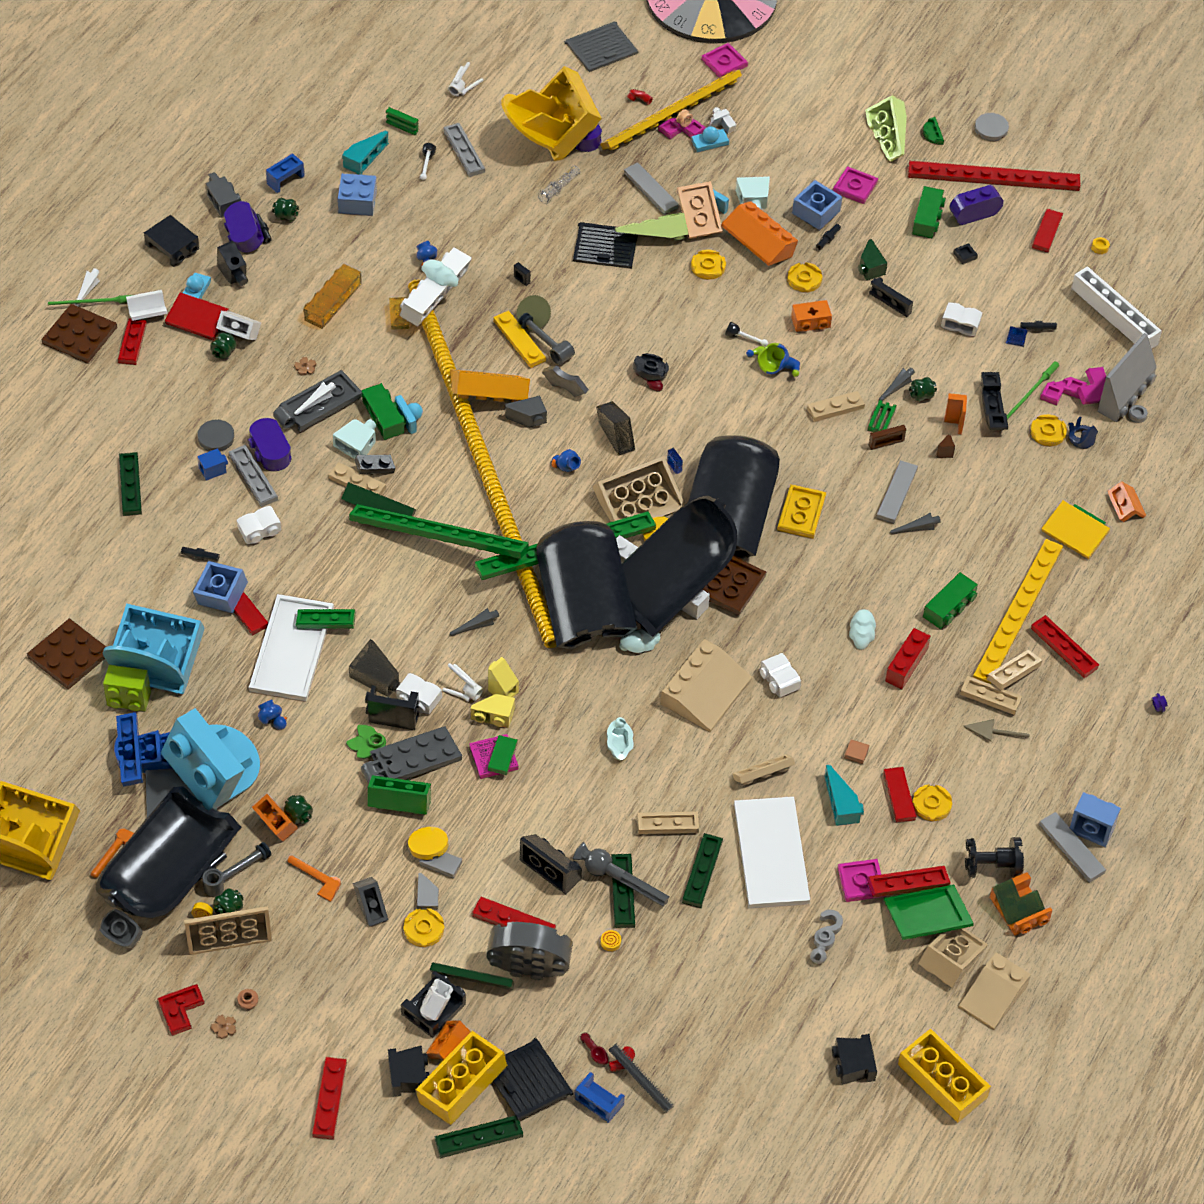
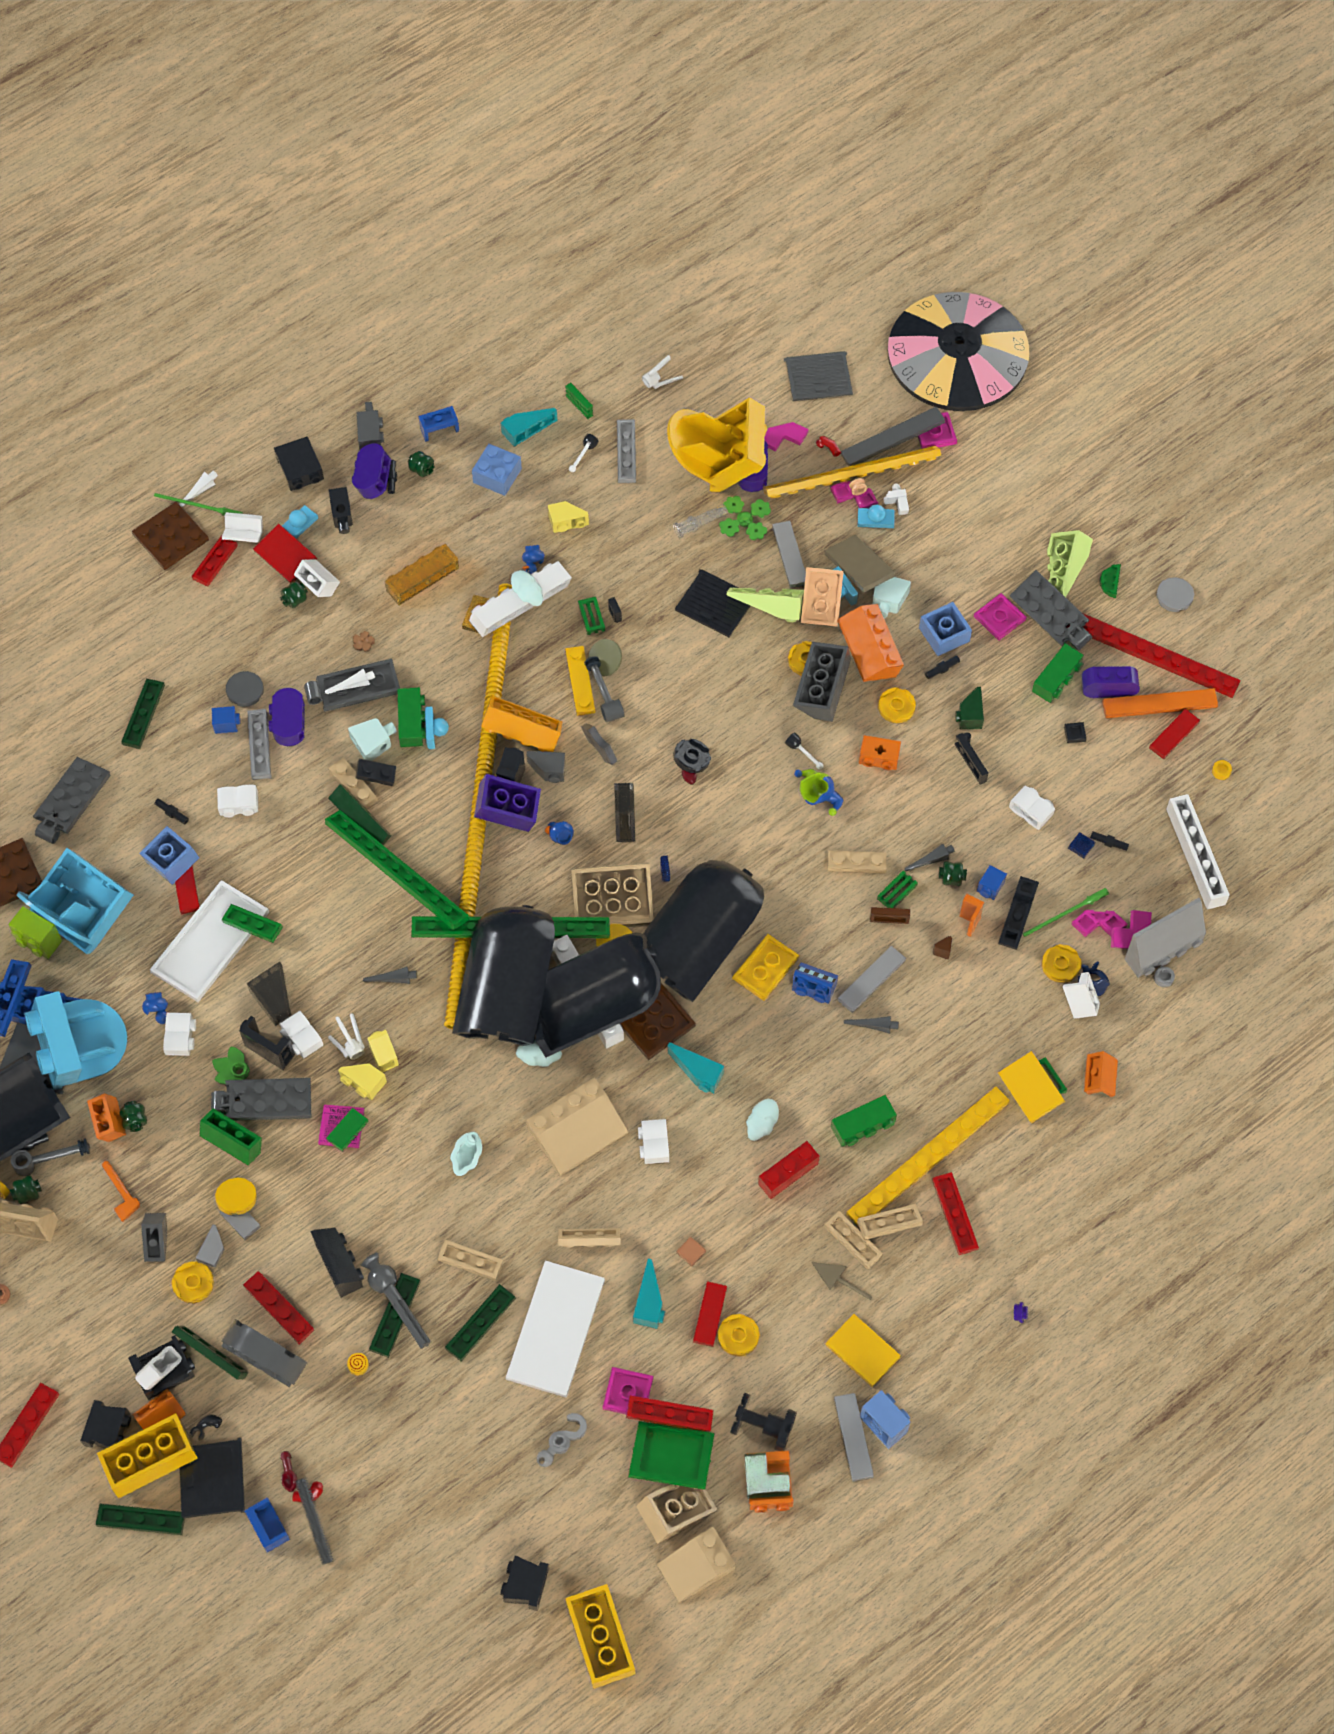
camera: 25 degrees right, 10 degrees up
(98, 573) = (69, 799): none -> dark grey hinge
(304, 729) = (178, 1034): none -> white brick
(439, 213) = (566, 516): none -> light yellow slope
(499, 288) = (594, 628): none -> green tile
(499, 424) = (511, 765): none -> black hips
(500, 1033) = (209, 1420): none -> black arm
(510, 448) = (507, 802): none -> dark purple brick
(597, 173) = (745, 519): none -> bright green plant
(603, 95) = (789, 431): none -> dark pink tile
(692, 73) = (893, 436): none -> dark grey tile
(723, 176) = (859, 563): none -> dark tan tile
(734, 274) = (822, 680): none -> dark grey slope
(786, 606) = (700, 1070): none -> teal slope
(852, 508) = (814, 983): none -> blue slope
(898, 166) = (1052, 611): none -> dark grey hinge
(959, 383) = (991, 882): none -> blue brick
(1023, 211) = (1160, 703): none -> orange tile
(1044, 777) = (863, 1350): none -> yellow tile
(1082, 447) = (1082, 997): none -> white panel

